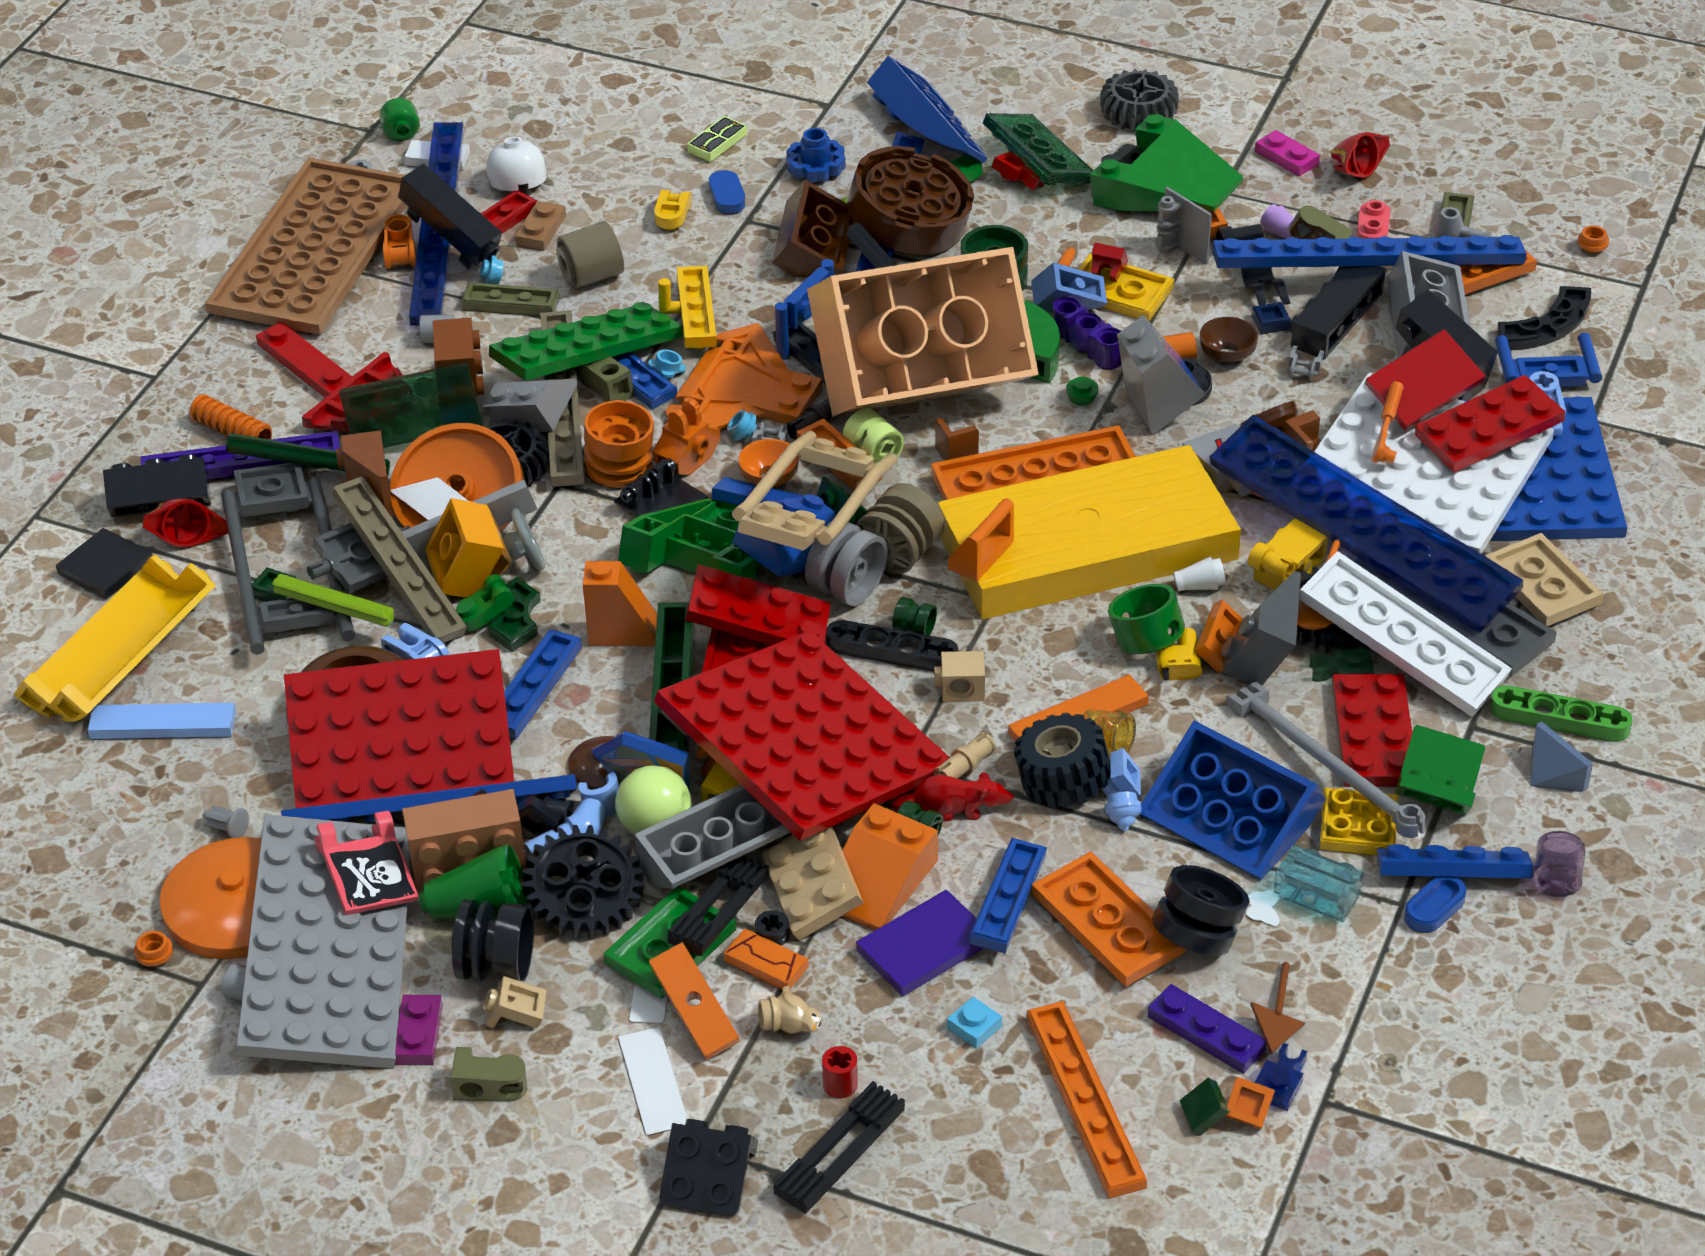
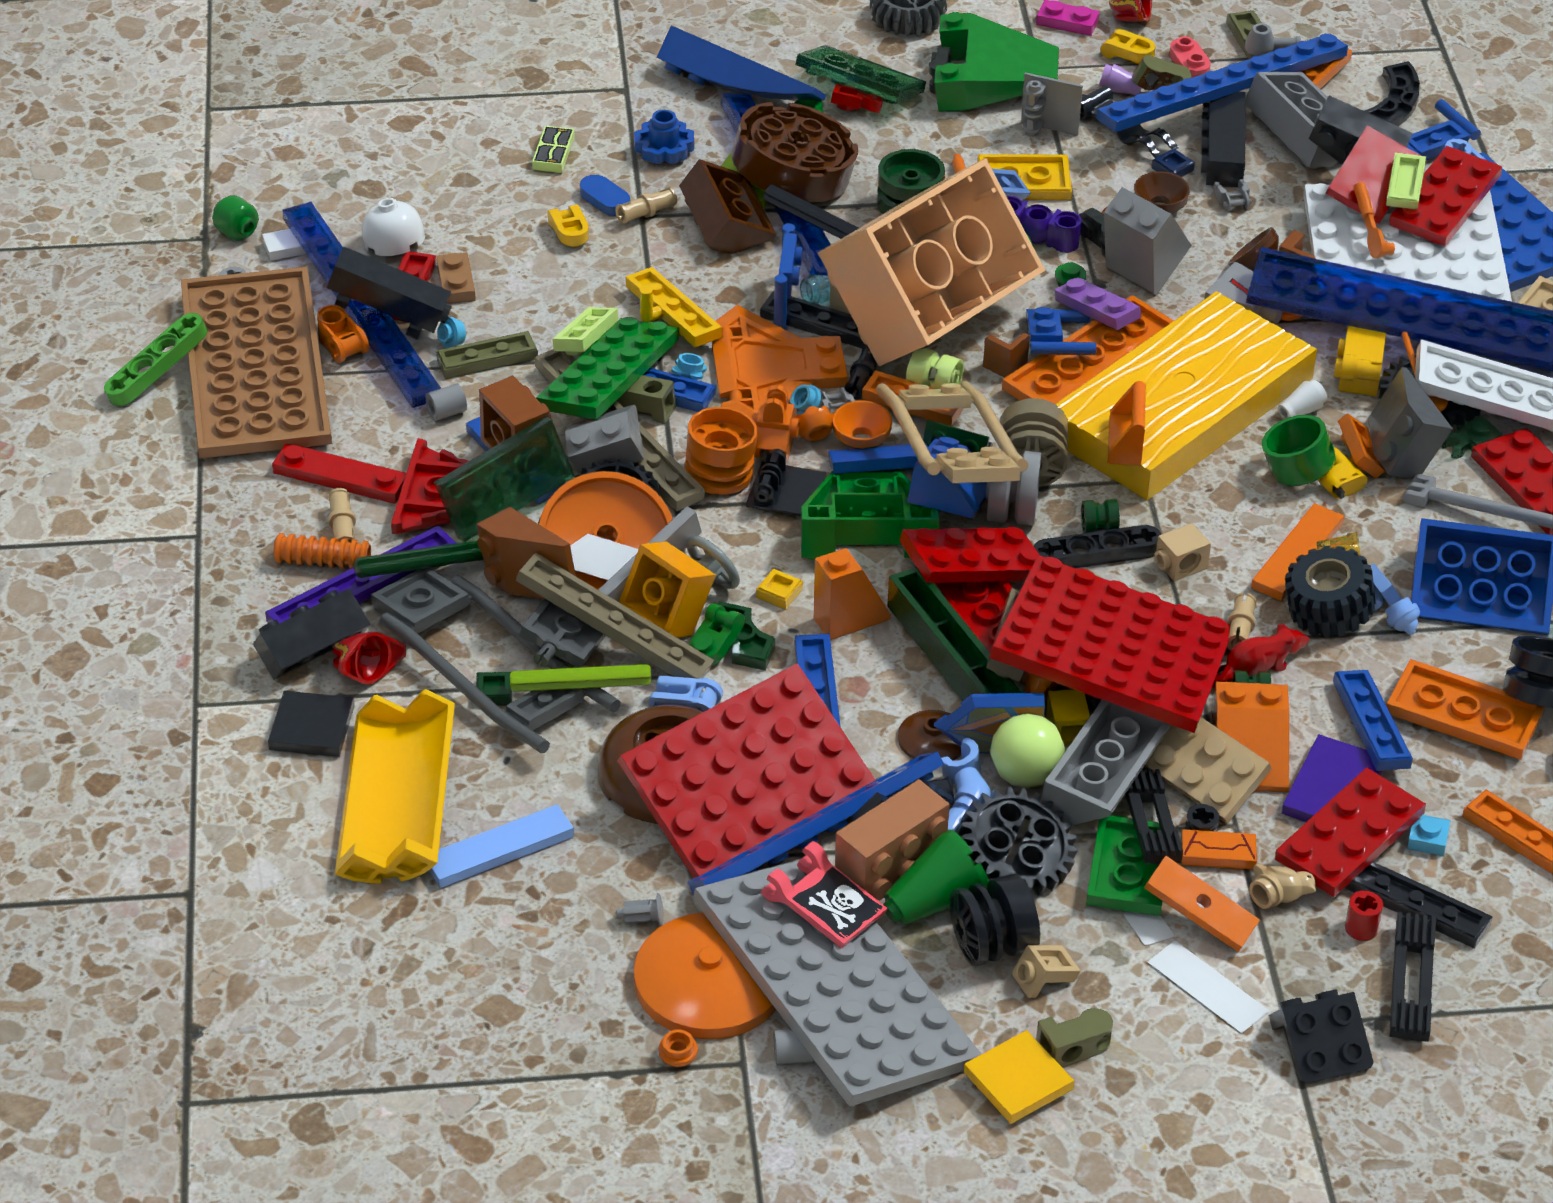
camera: 30 degrees left, 0 degrees up
(233, 218) = (129, 384): none -> bright green beam
(271, 398) = (341, 517): none -> tan pin
(408, 1090) = (1018, 1076): none -> yellow tile
(418, 1029) = (975, 1019): magenta plate -> none
(572, 585) = (779, 589): none -> yellow tile
(589, 255) = (541, 288): dark tan piece -> none
(598, 302) = (585, 330): none -> yellowish green plate
(726, 447) = (815, 423): none -> orange plate
(752, 210) = (646, 205): none -> tan pin
(892, 989) = (1350, 831): none -> red plate
(909, 1079) = (1409, 896): none -> black tile
(1010, 429) = (1047, 335): none -> blue plate
(1076, 422) = (1097, 303): none -> medium lavender plate
(1108, 257) = (1009, 151): red tile -> none
(1320, 195) = (1127, 46): none -> yellow plate
(1447, 395) = (1406, 181): none -> yellowish green tile
(1593, 239) = (1377, 19): orange plate -> none

